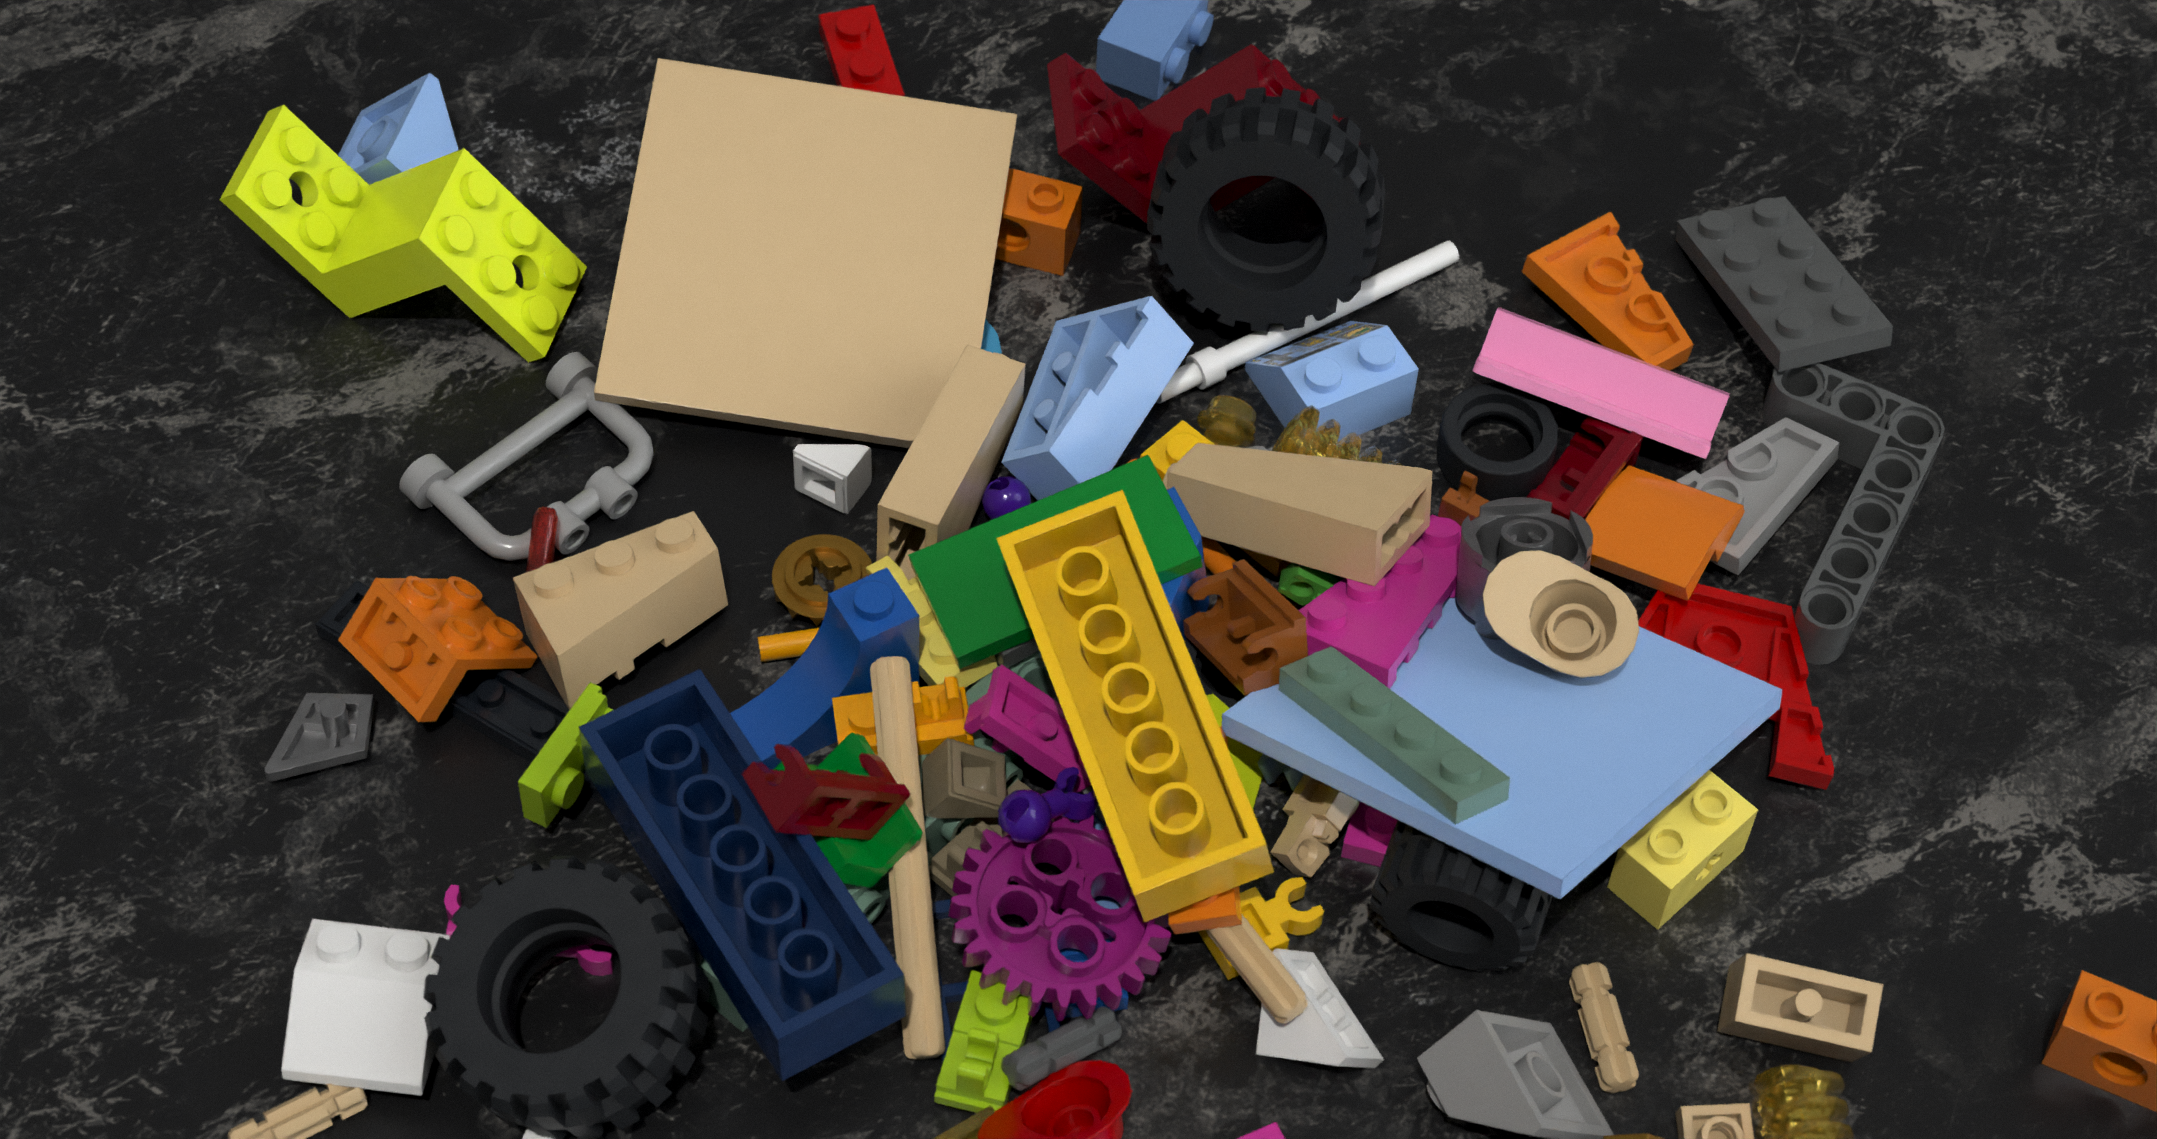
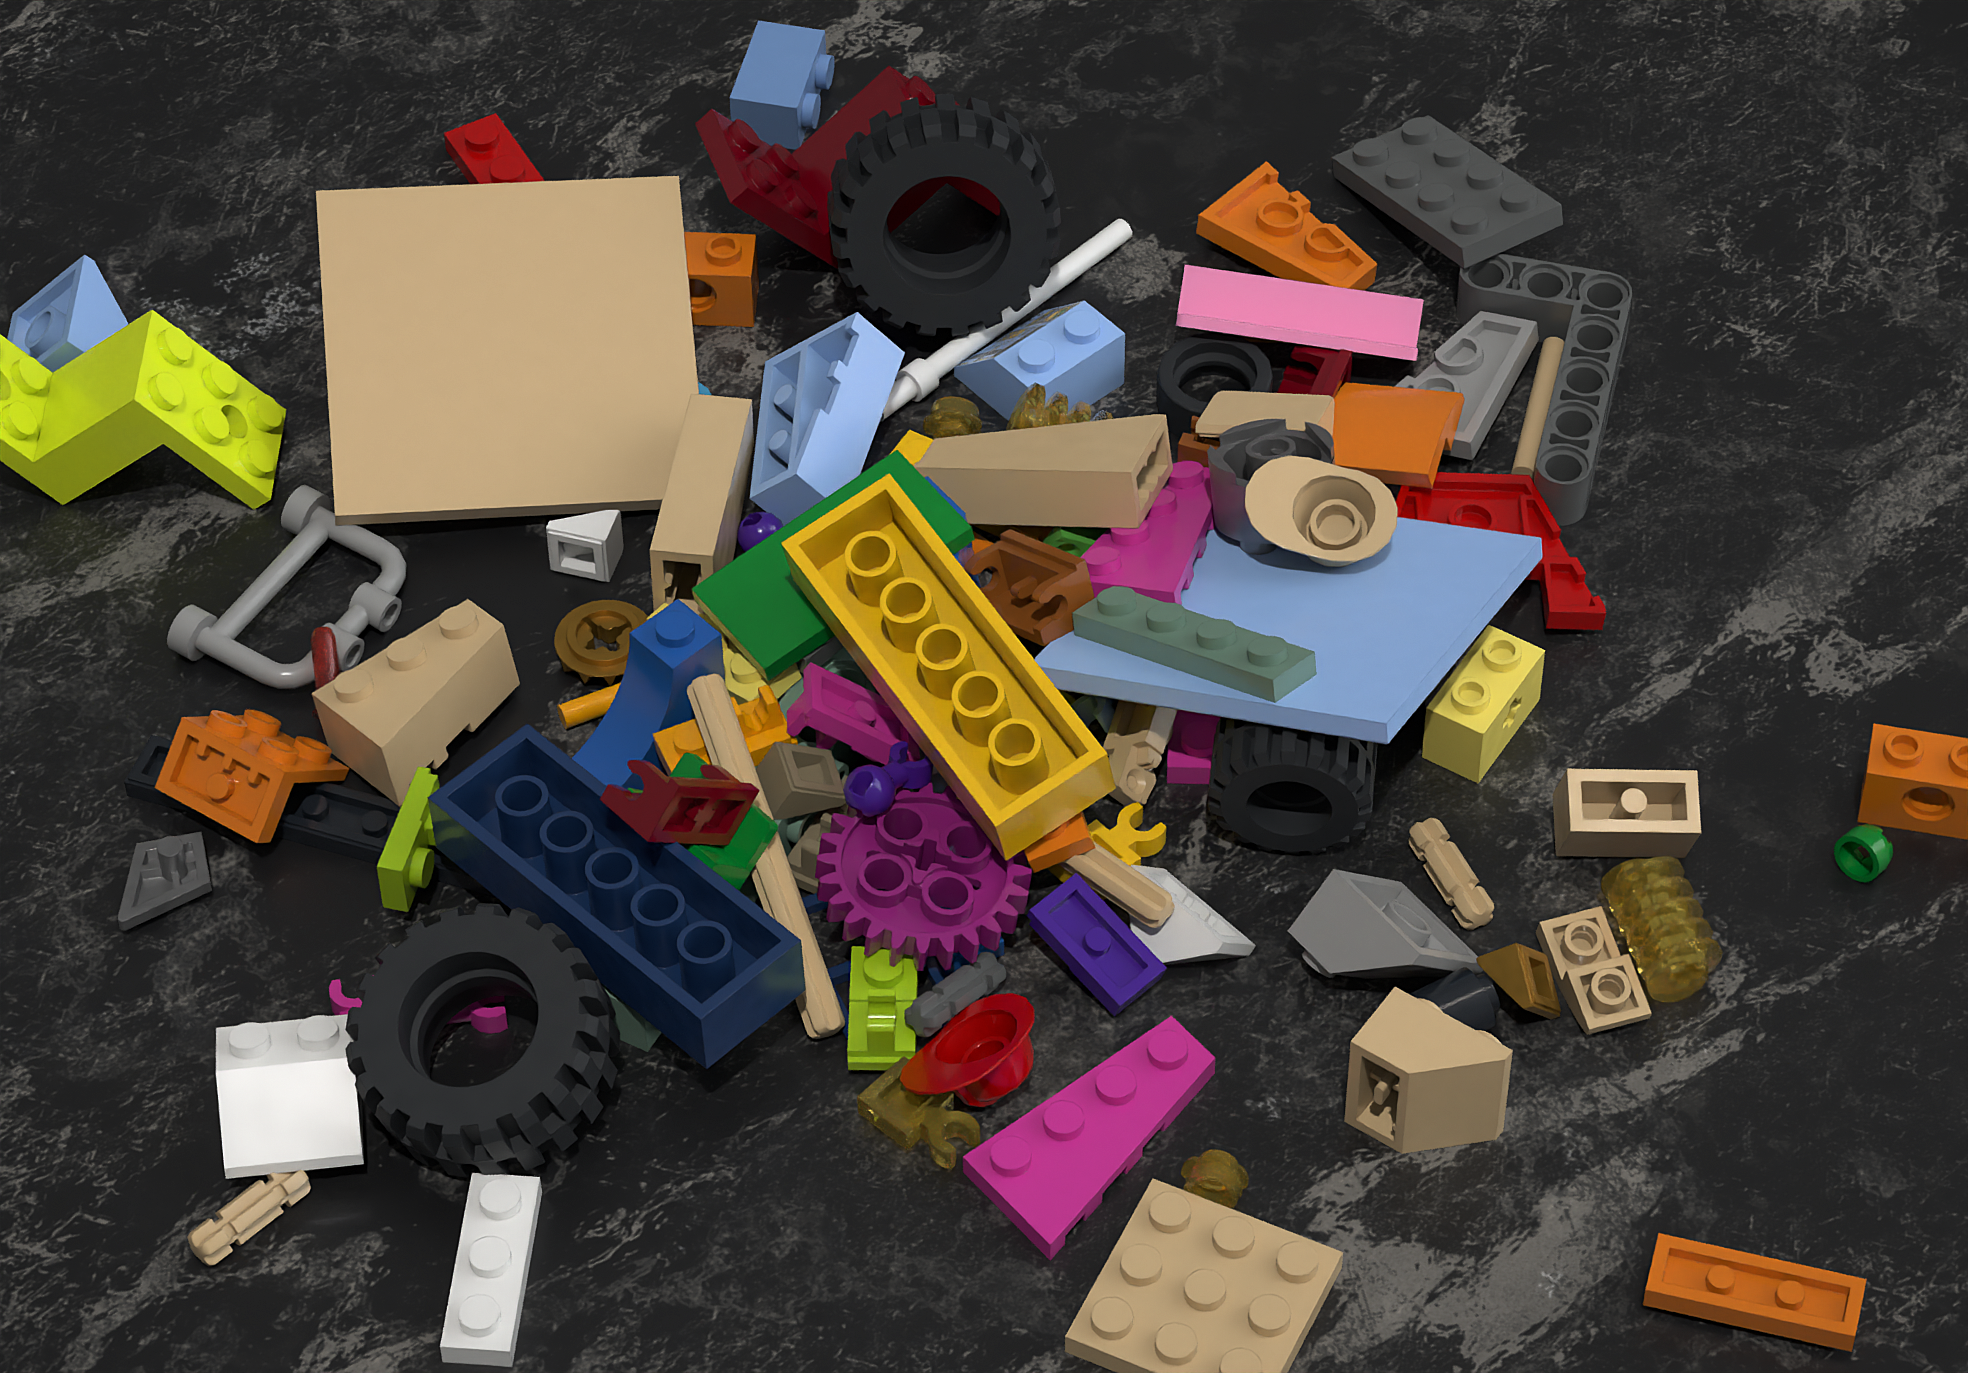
camera: 10 degrees left, 5 degrees down
(1218, 1026) = (1096, 944): none -> dark purple plate
(1513, 476) = (1239, 407): none -> tan slope
(1818, 533) = (1538, 407): none -> tan bar
(2039, 1118) = (1852, 861): none -> green hinge

